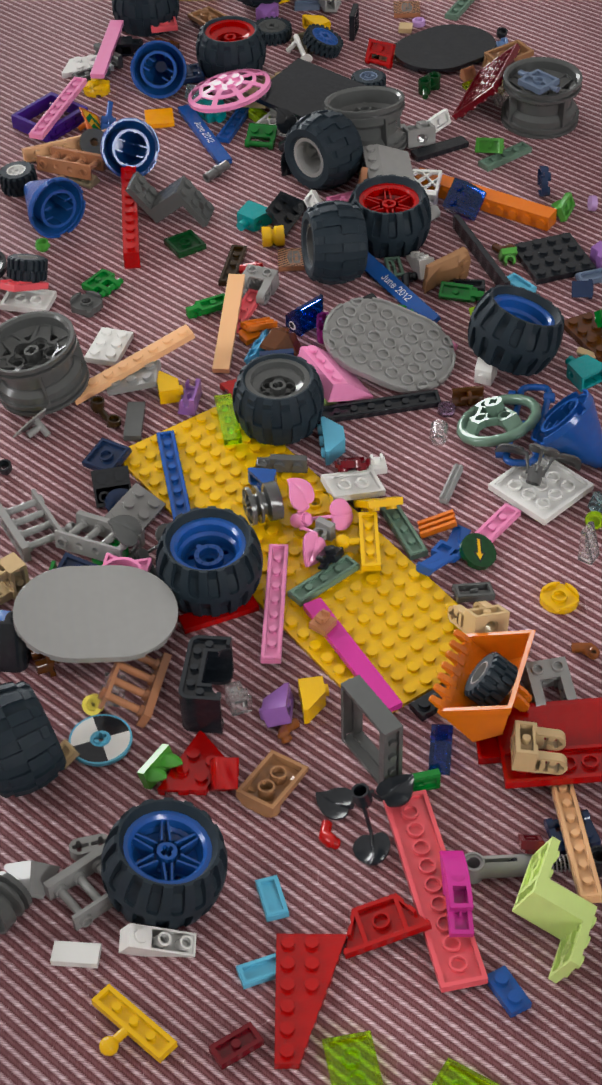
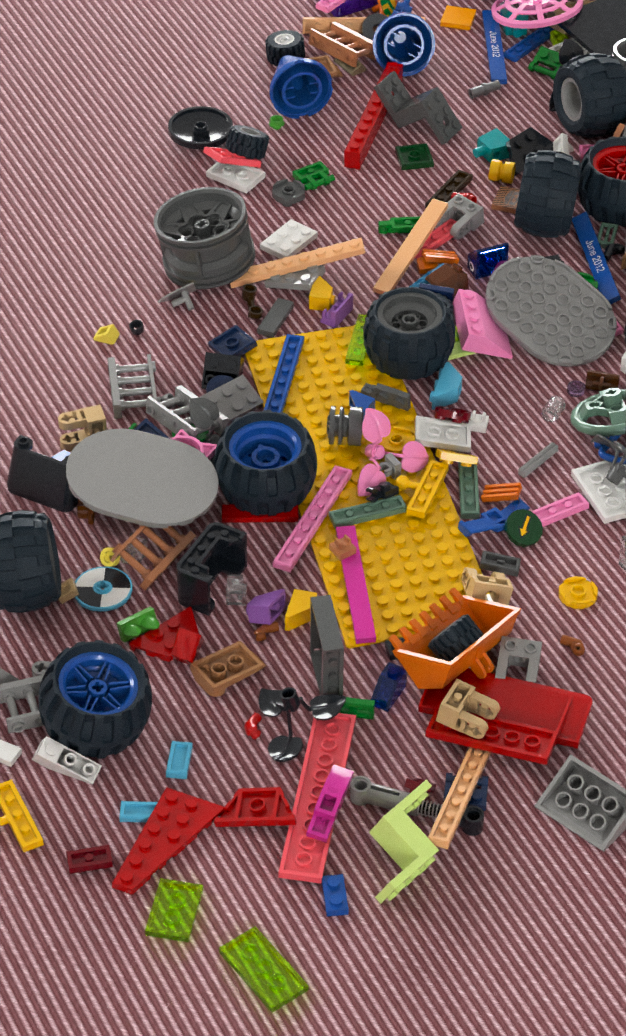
camera: 20 degrees right, 0 degrees up
(382, 406) = (512, 368): black tile -> none

